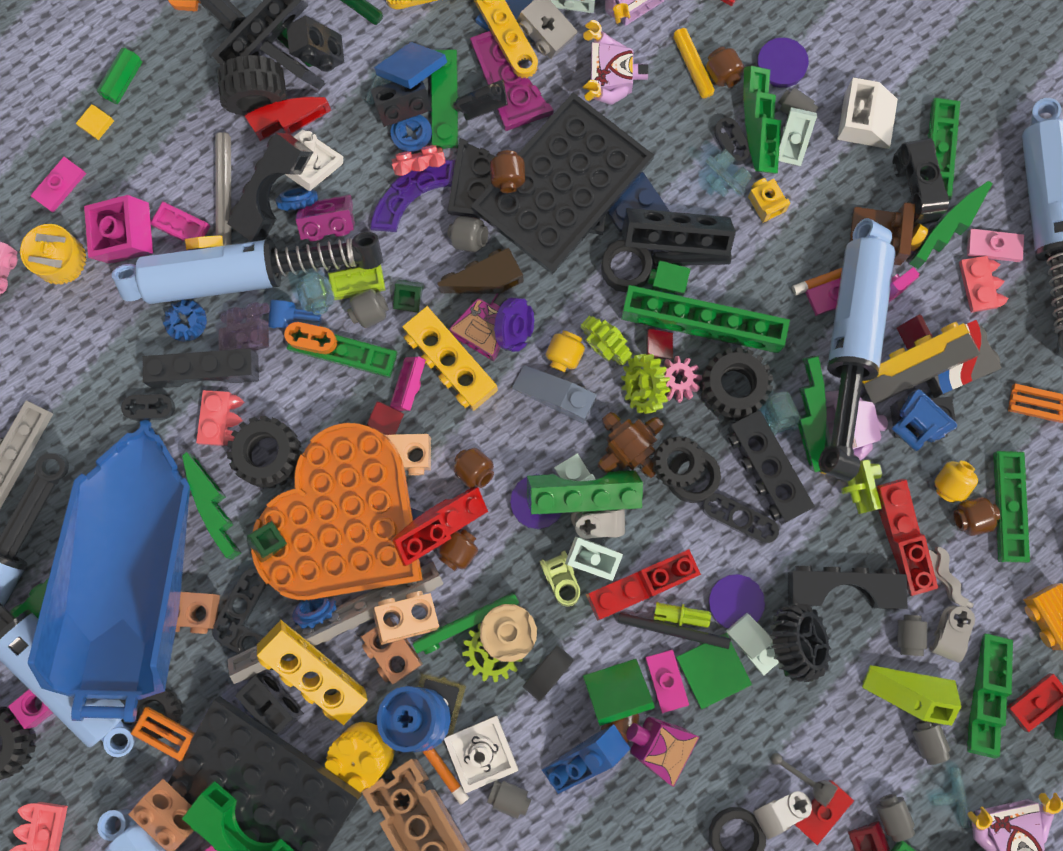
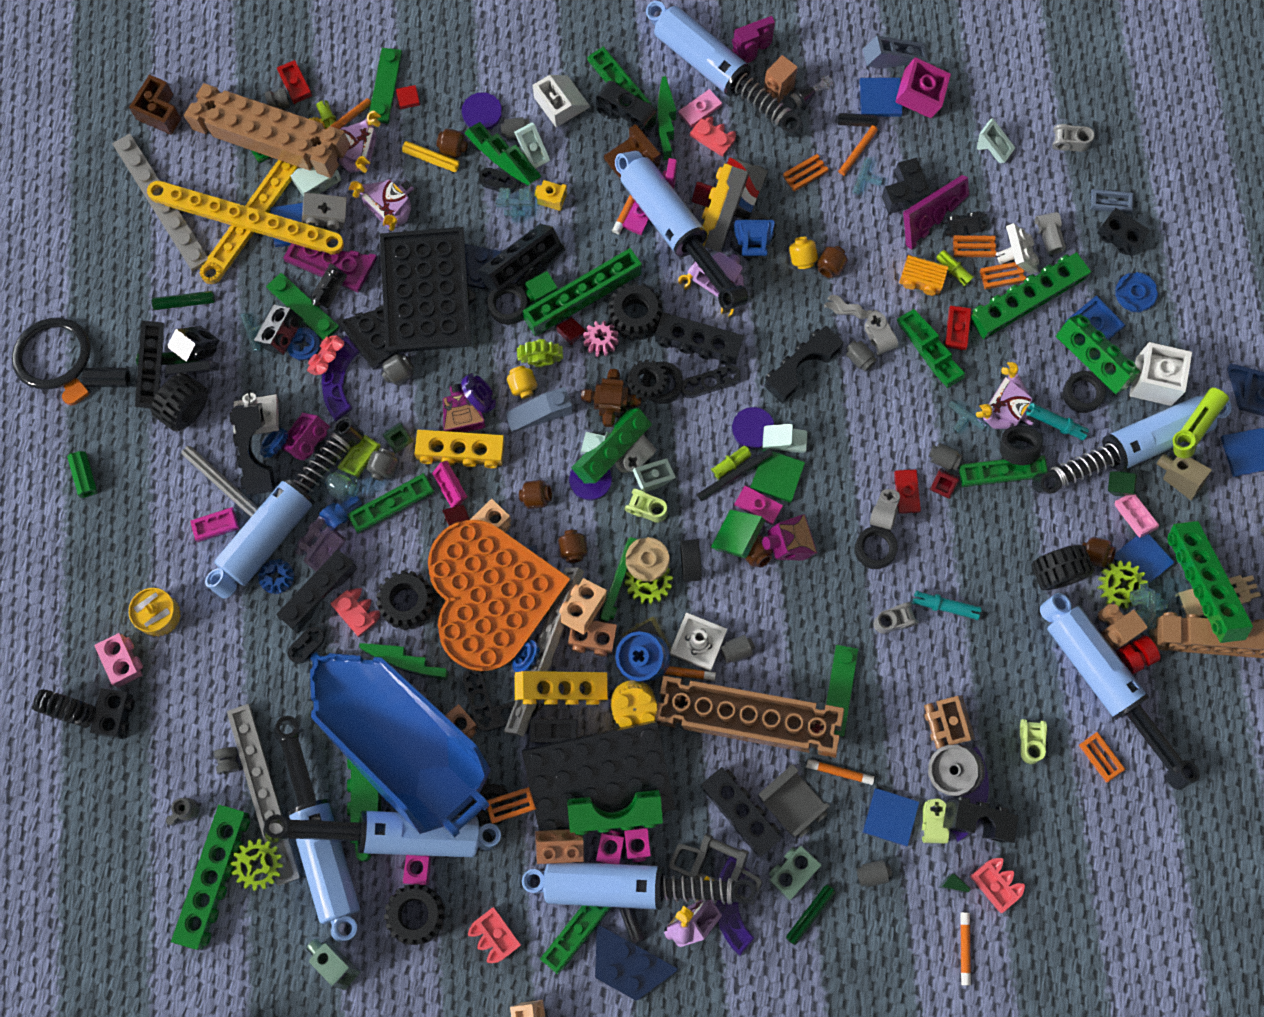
camera: 50 degrees left, 5 degrees down
(58, 184) = (110, 573): dark pink plate -> none
(94, 122) = (94, 516): yellow tile -> none
(118, 229) = (182, 559): dark pink brick -> none
(203, 242) = (243, 518): yellow tile -> none
(266, 541) = (459, 646): dark green slope -> none
(286, 115) = (216, 402): red slope -> none
(312, 332) = (362, 507): orange beam -> none
(410, 65) = (264, 304): blue tile -> none
(438, 524) = (549, 539): red slope -> none
(488, 276) = (435, 381): dark brown slope -> none
(507, 171) = (389, 310): reddish brown head -> none
(587, 759) = (757, 585): blue slope -> none
(643, 584) = (694, 465): red slope -> none
(645, 383) = (585, 356): lime gear -> none
(781, 413) = (676, 302): clear light blue piece -> none
(800, 642) = (807, 412): black gear -> none
(813, 424) = (698, 292): green slope -> none
(822, 790) = (895, 479): dark grey hinge -> none
(863, 487) = (761, 303): lime hips -> none
(905, 537) = (806, 308): red slope -> none
(918, 236) = (654, 139): yellow tile -> none
(918, 694) = (891, 383): lime slope -> none
(931, 742) = (924, 400): dark grey brick -> none
(1012, 505) = (843, 237): green plate -> none

